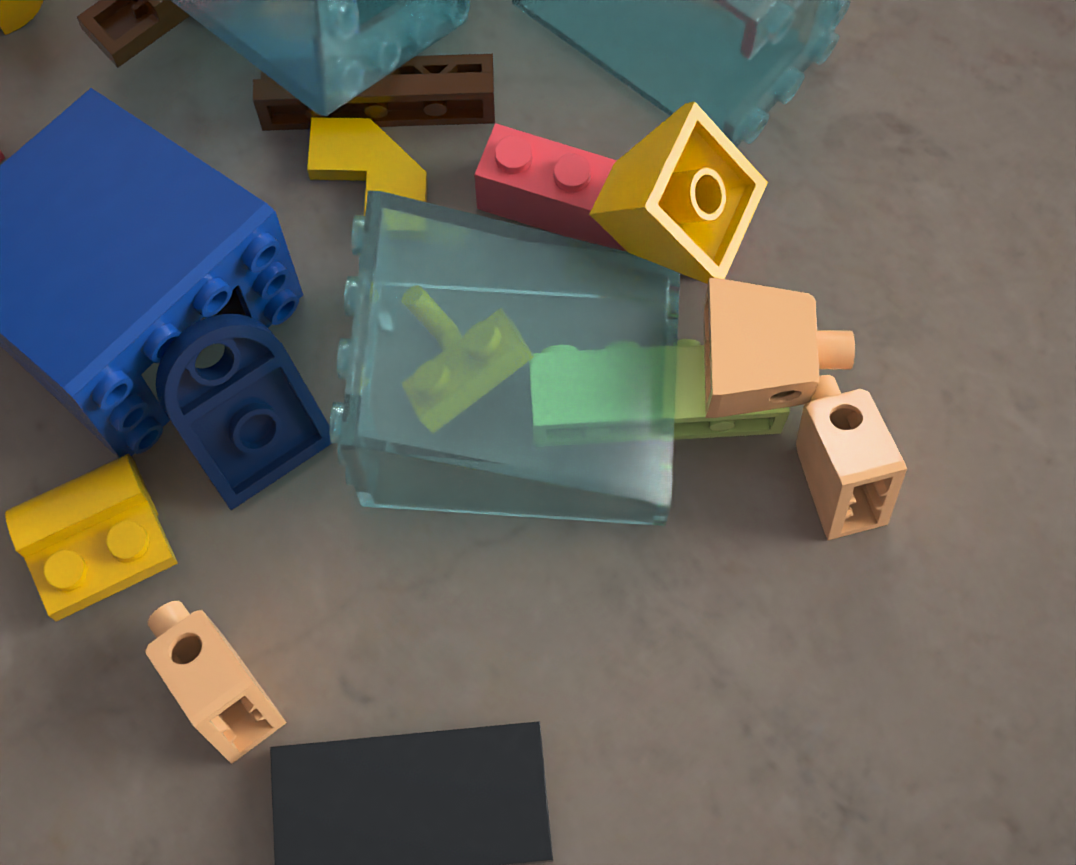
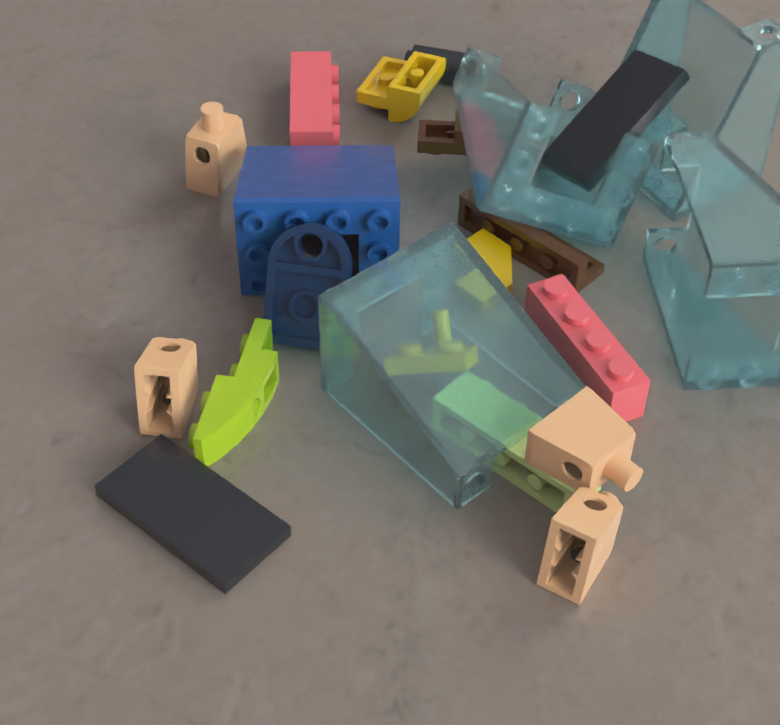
camera: 45 degrees right, 25 degrees down
(90, 537) = (191, 299): yellow brick -> none
(310, 627) = (237, 399): none -> lime slope
(681, 196) = (616, 348): yellow slope -> none

